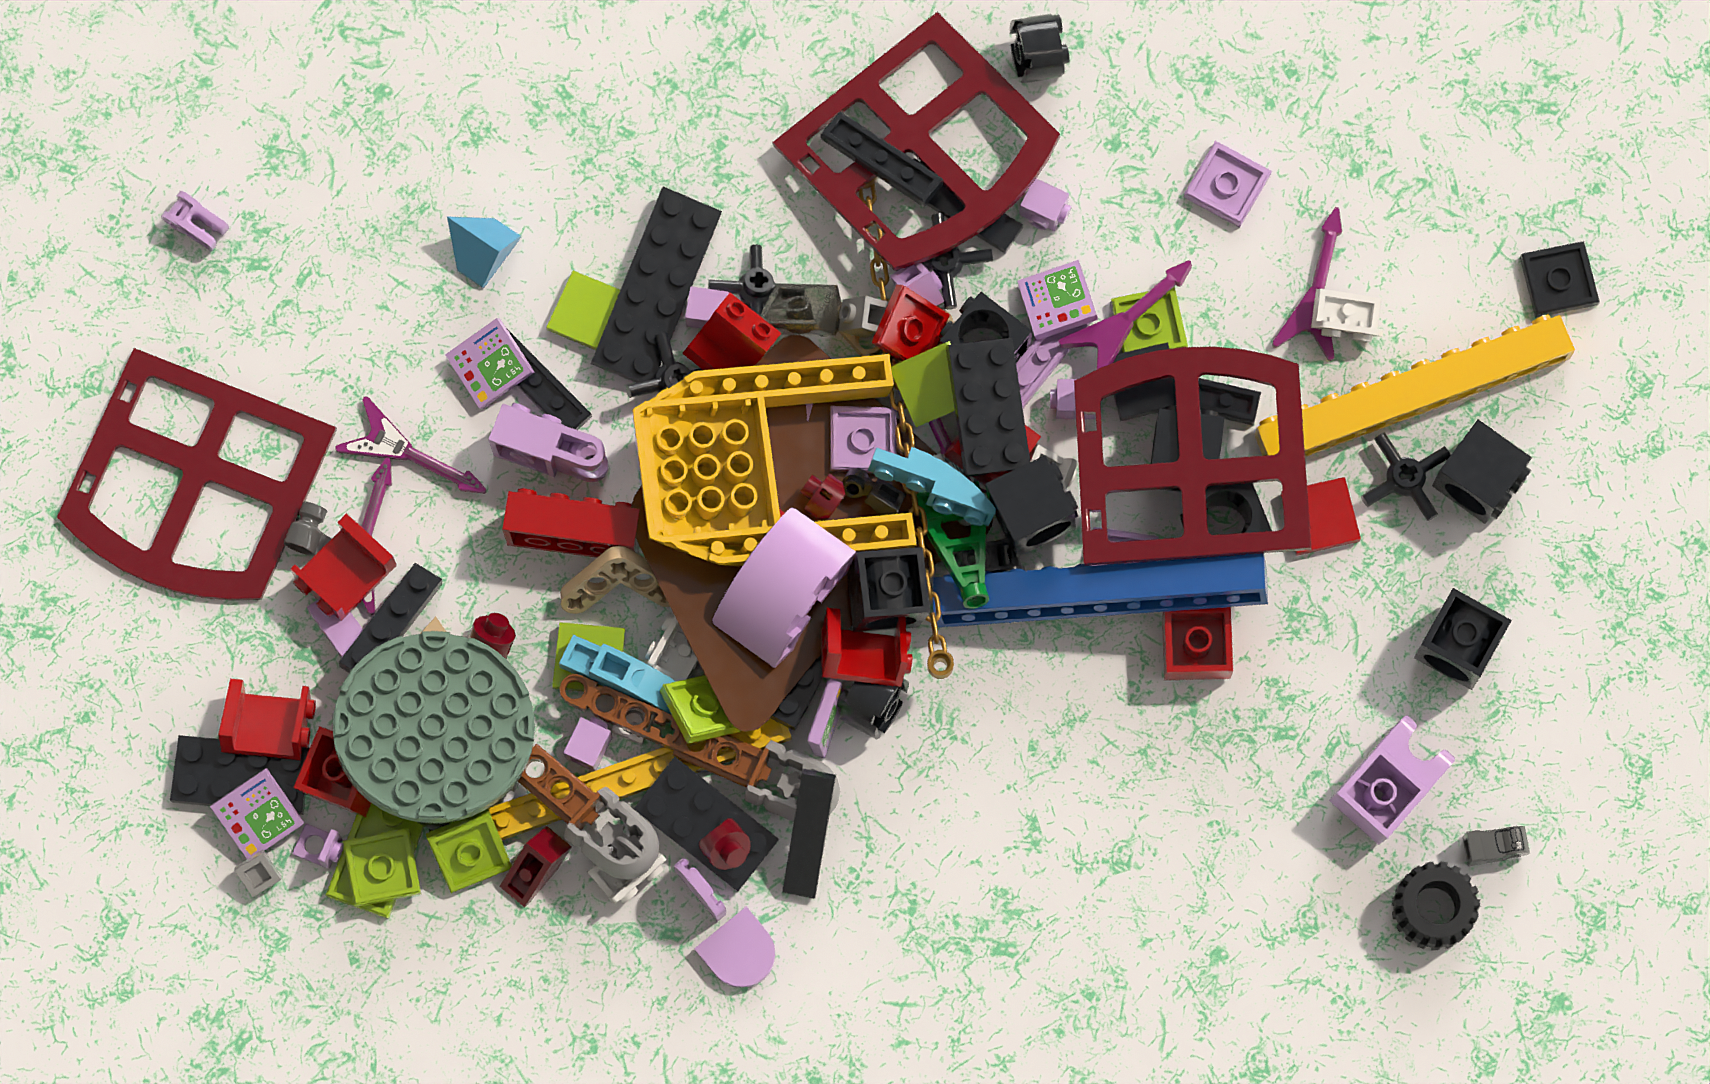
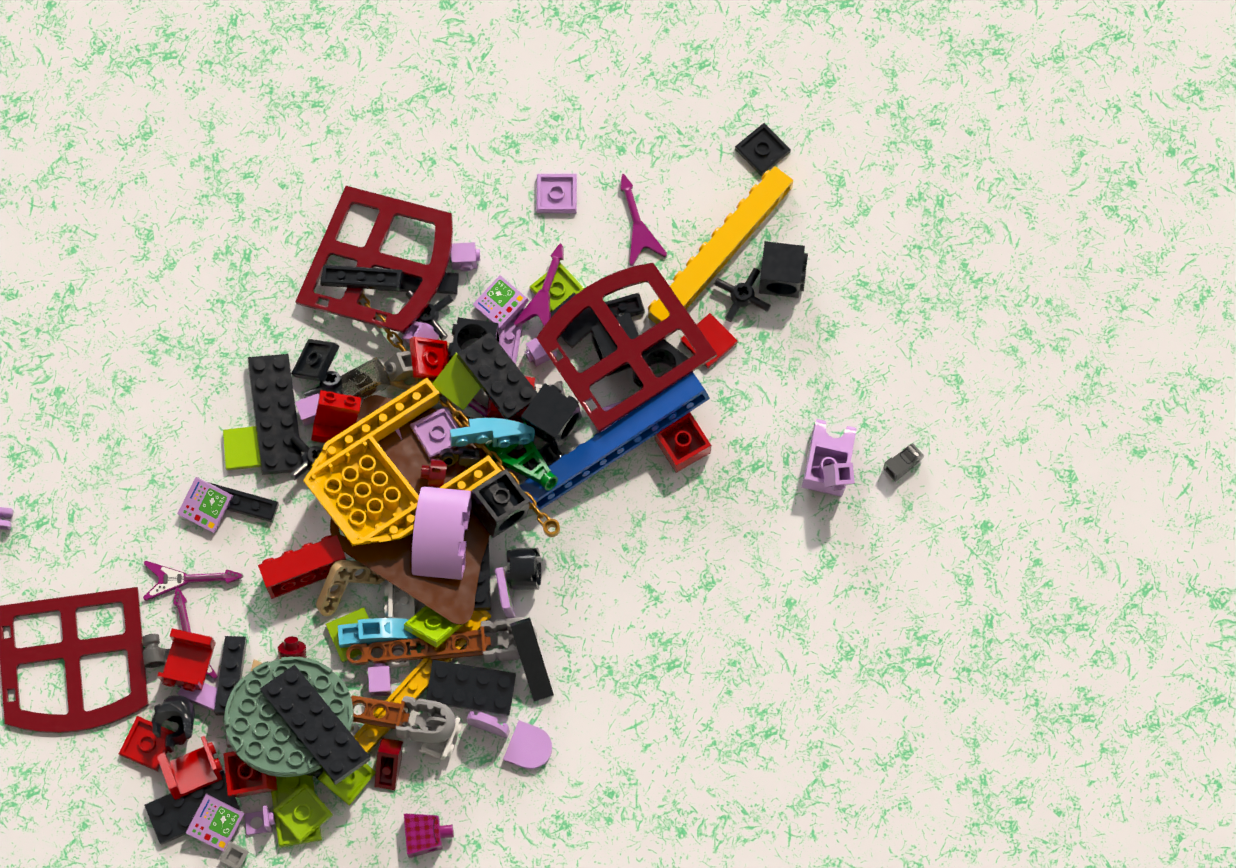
camera: 30 degrees left, 5 degrees down
(229, 651) = (142, 744): none -> red tile
(290, 627) = (177, 710): none -> black piece
(460, 758) = (315, 724): none -> black plate
(480, 246) = (163, 445): dark azure slope -> none
(529, 991) = (424, 833): none -> magenta torso
(546, 444) = (263, 530): lavender brick -> none
(726, 845) = (489, 691): dark red piece -> none
(753, 241) = (315, 359): none -> black tile
(863, 654) = (506, 546): red panel -> none
(1038, 48) = (413, 174): black brick -> none
(1346, 313) = (660, 226): white bracket -> none
(1384, 817) = (838, 475): none -> lavender brick
(1451, 882) = (896, 495): black tyre -> none
(1462, 639) = (823, 361): black brick -> none

